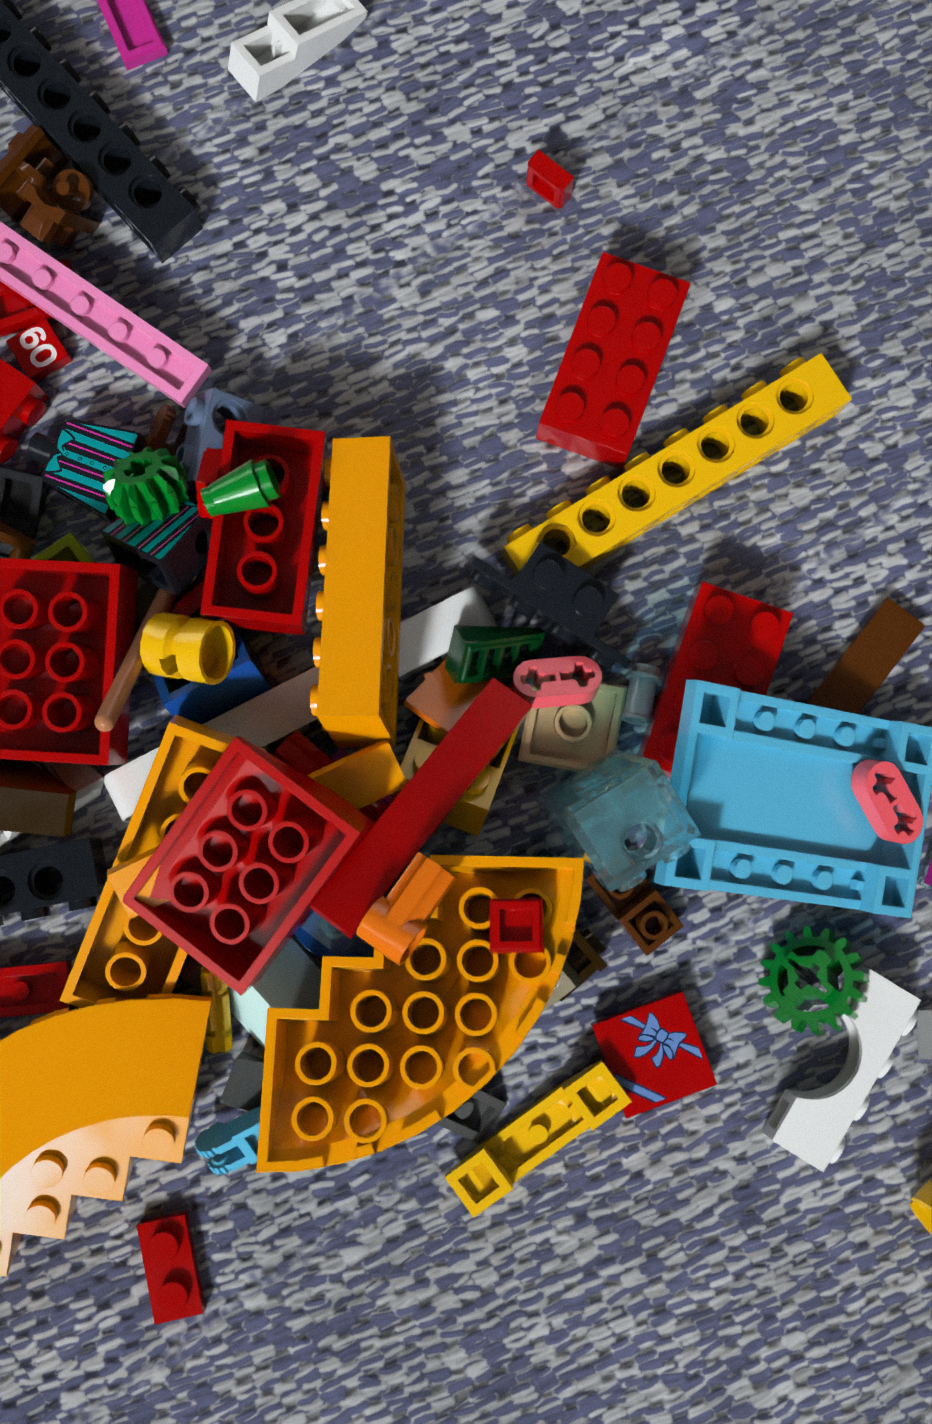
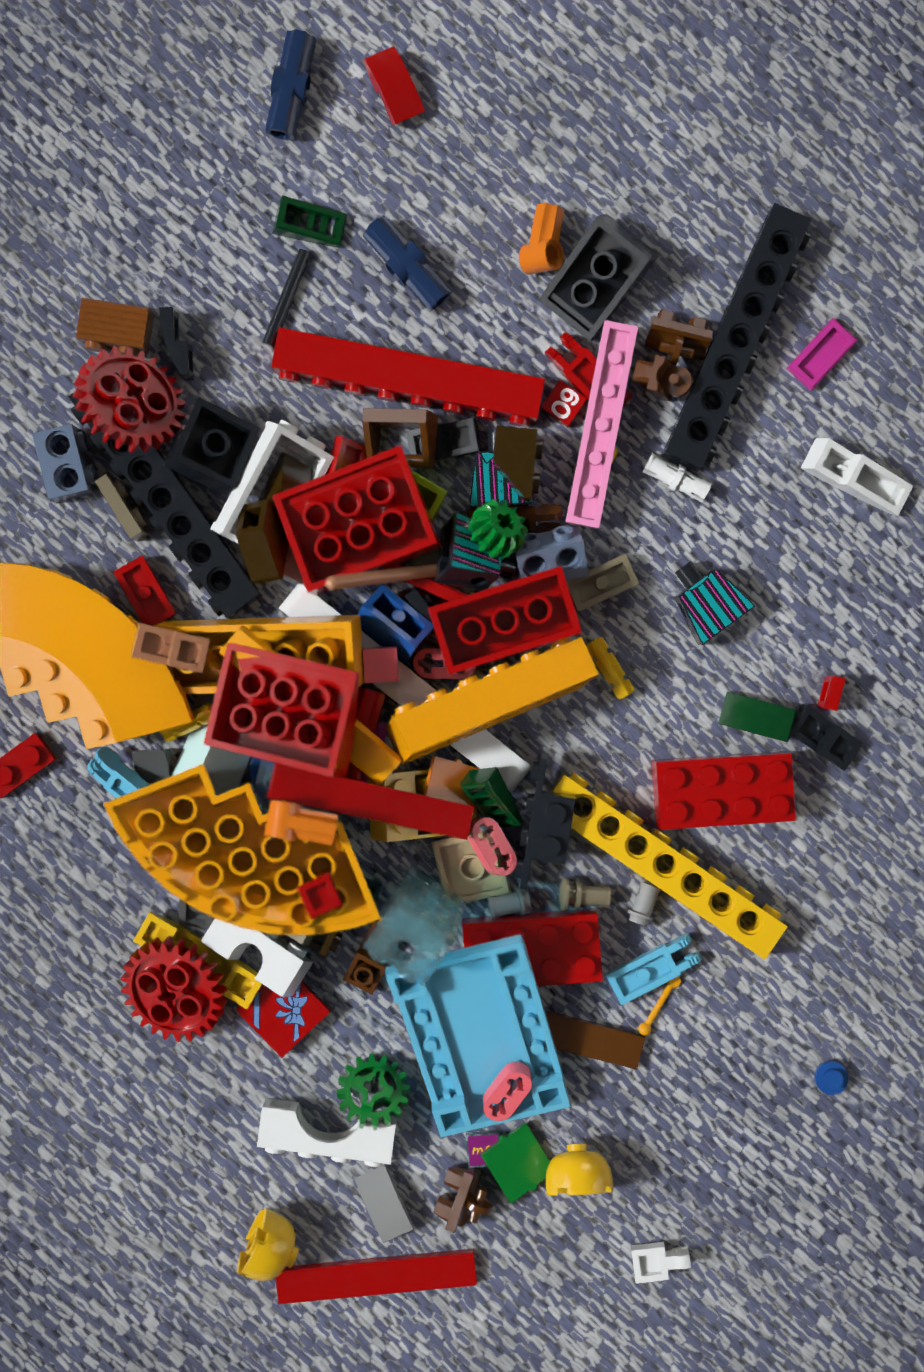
camera: 70 degrees right, 5 degrees up
(67, 426) = (515, 458): none -> dark brown slope
(95, 984) = (170, 647): none -> nougat slope
(188, 648) = (403, 606): yellow wheel -> none
(196, 252) = (677, 477): none -> white pin
(207, 474) = (517, 572): red tile -> none
(242, 489) = (517, 600): green cone -> none
(253, 717) = (380, 664): none -> coral tile
(284, 388) = (602, 583): none -> dark tan plate
(302, 655) = (437, 672): none -> coral beam
(368, 277) = (709, 602): none -> torso
(405, 434) = (610, 668): none -> yellow axle
(539, 282) = (757, 717): none -> dark green slope
(570, 1204) = (174, 989): none -> red gear
(592, 1026) = (282, 963): none -> white arch
(602, 216) = (825, 737): none -> black slope
(669, 598) = (582, 895): none -> dark tan pin
(715, 524) = (644, 904): none -> light grey pin
(803, 552) = (650, 969): none -> medium azure hinge
(829, 533) = (645, 1028): none -> light orange hinge

